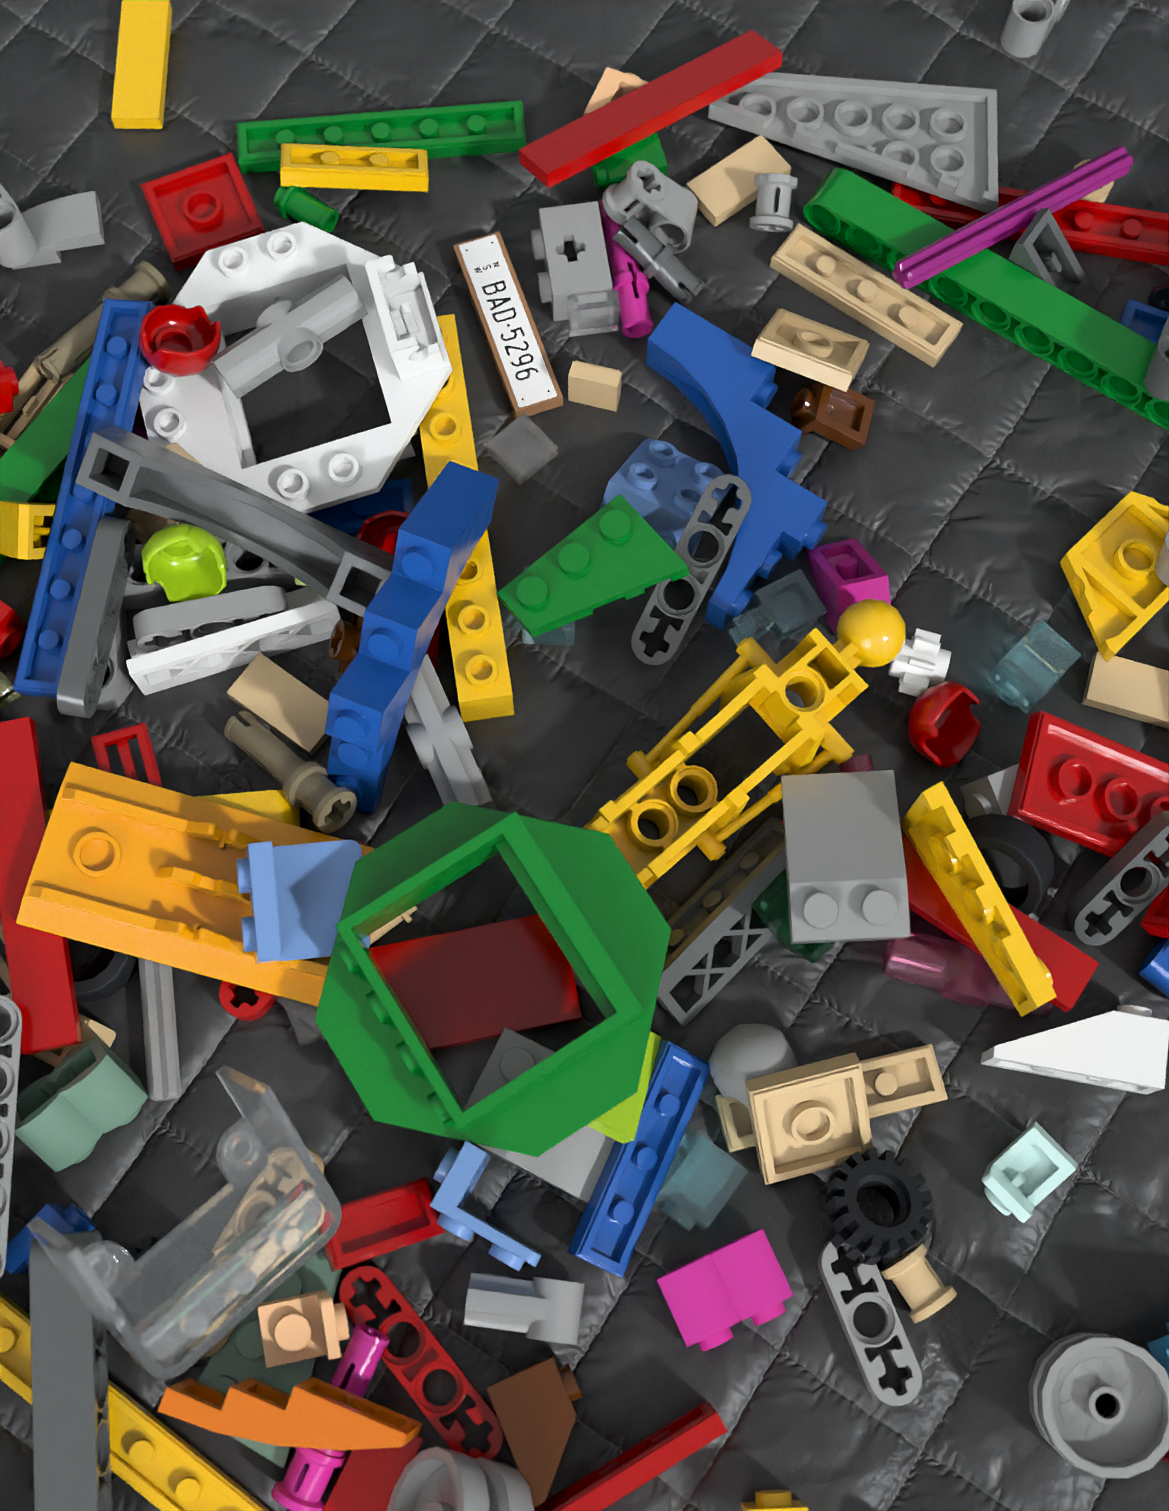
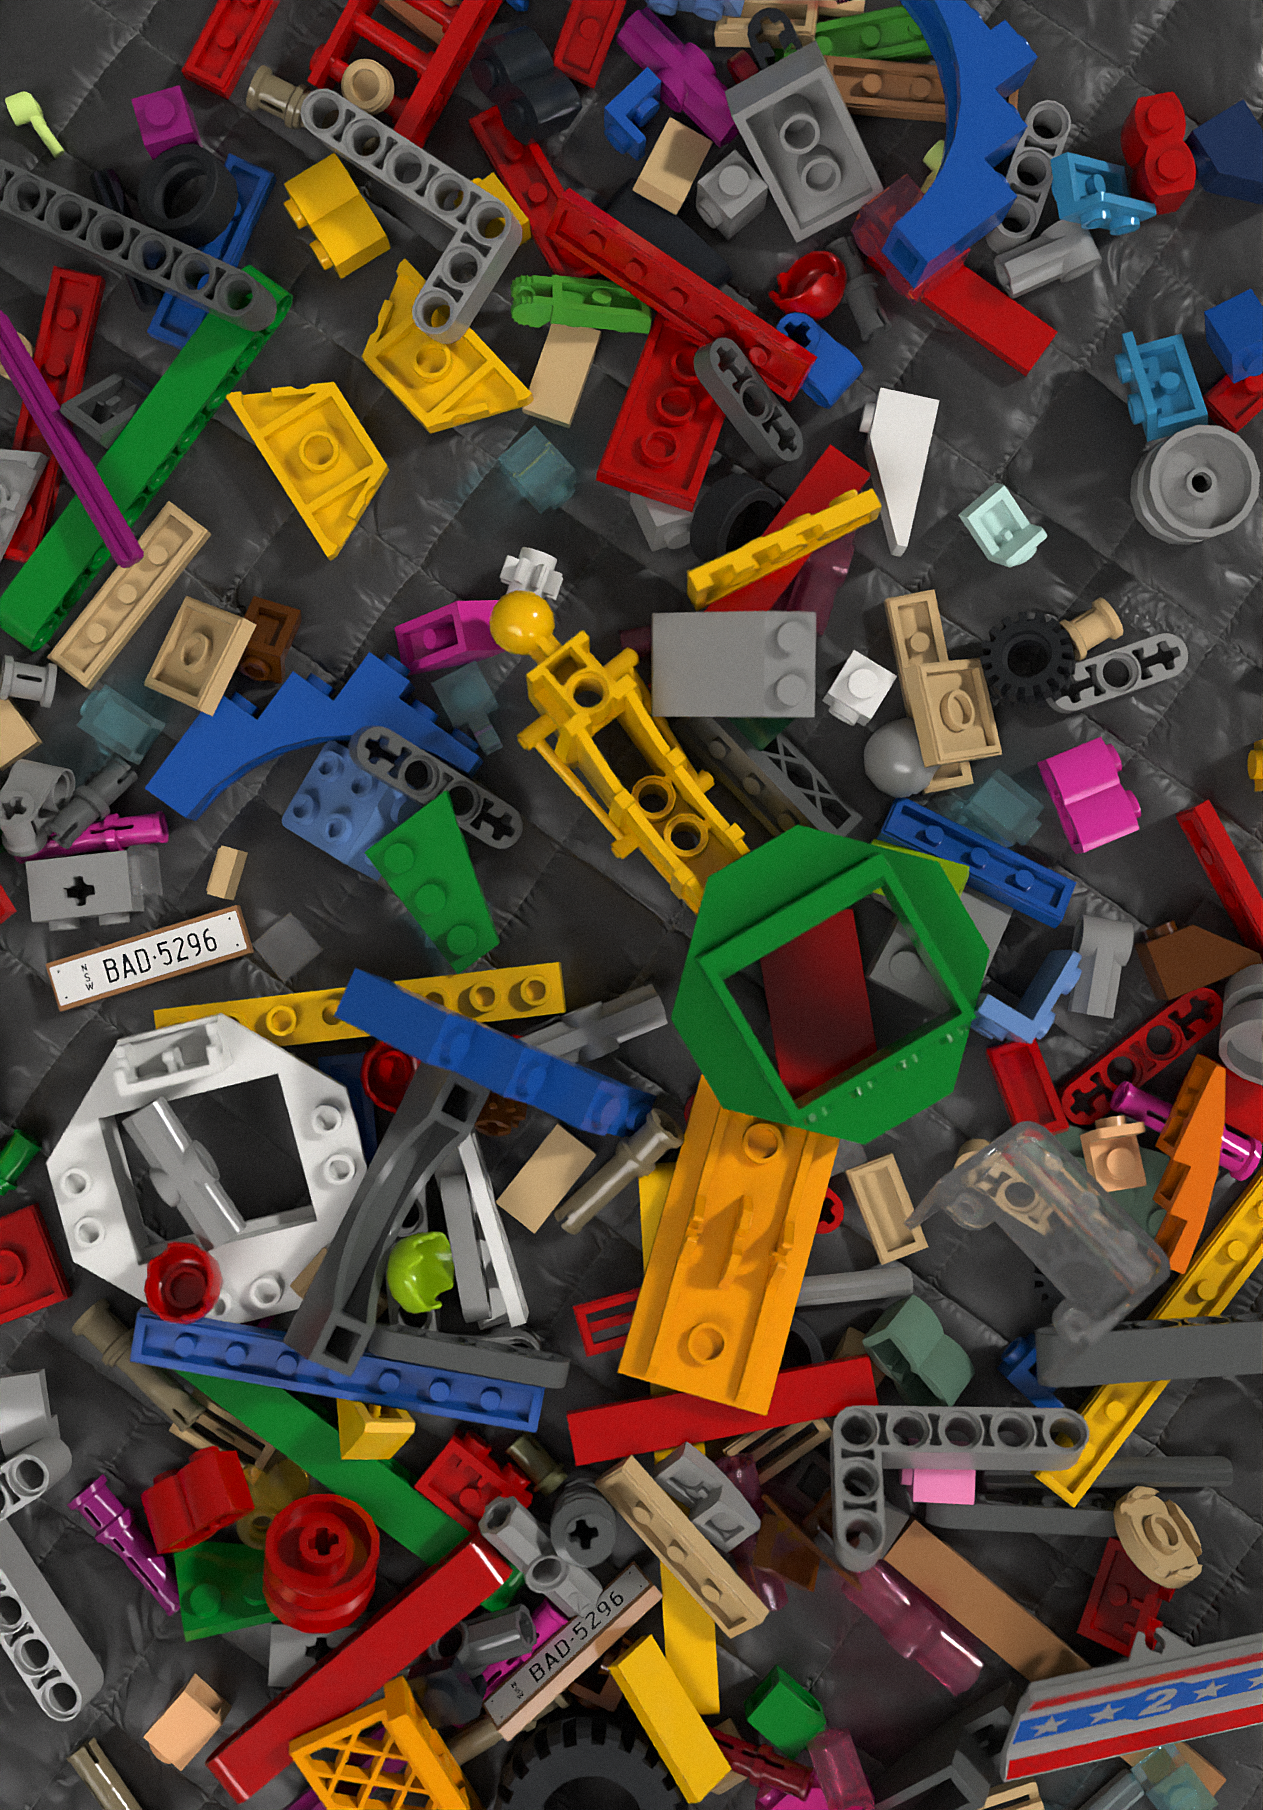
camera: 85 degrees left, 15 degrees up
(267, 1056) = (885, 1208): none -> tan tile
(295, 897) = (754, 1162): medium blue bracket -> none
(737, 286) = (120, 723): none -> clear light blue brick
(826, 1012) = (858, 690): none -> white brick
(943, 723) = (592, 561): red hair -> none
(1023, 455) = (316, 455): none -> yellow wing

